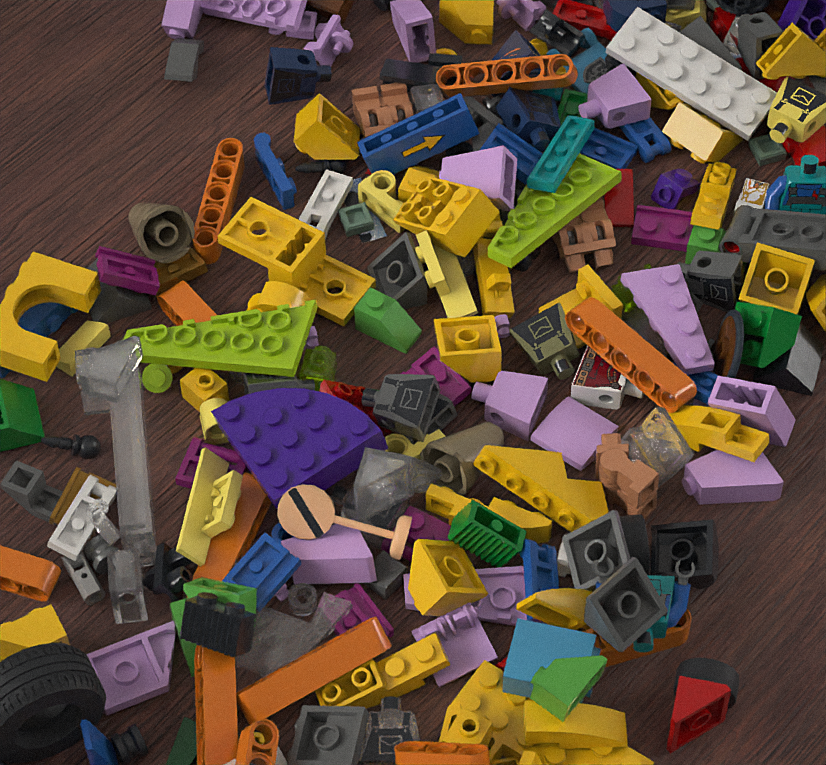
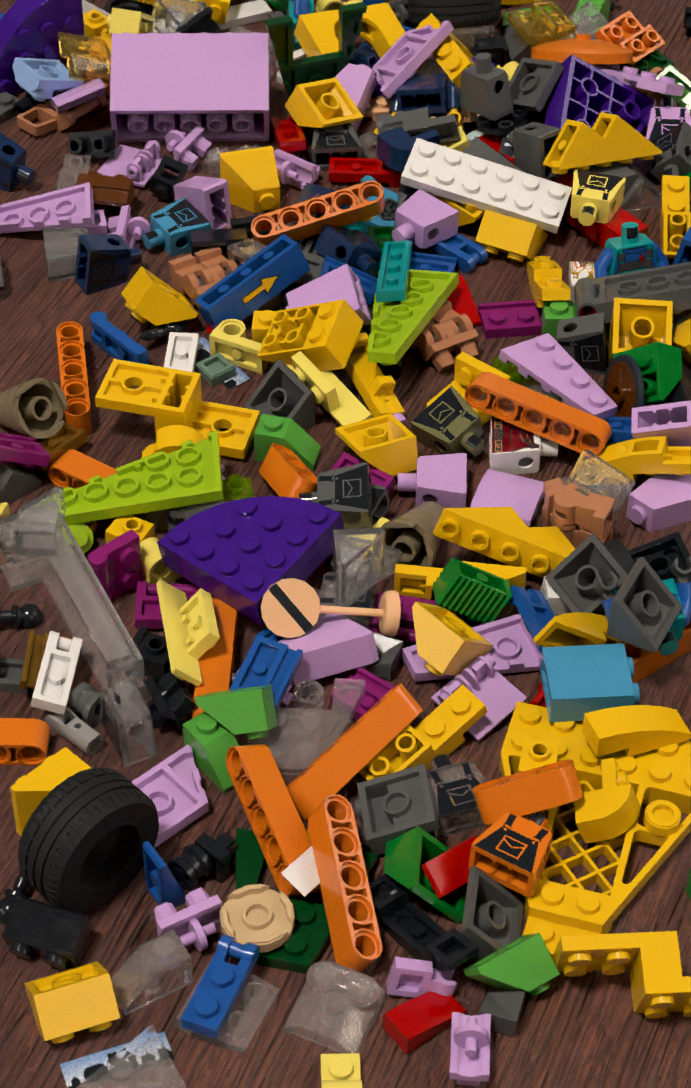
camera: 20 degrees left, 10 degrees down
(96, 513) = (74, 661): clear arm -> none
(156, 738) = (219, 853): none -> black tile
(170, 514) = (154, 653): none -> black brick
(183, 422) = (122, 561): none -> magenta plate
(218, 624) = (247, 722): black brick -> none
(256, 51) = (61, 251): none -> clear torso
(370, 358) = (287, 472): none -> orange beam
(375, 45) = (172, 227): none -> dark azure torso
(558, 34) = (339, 178): black hips -> none
(566, 683) = (619, 685): bright green slope -> none
(672, 187) = (504, 284): dark purple bracket -> none
(766, 150) = (573, 240): sand green tile -> none

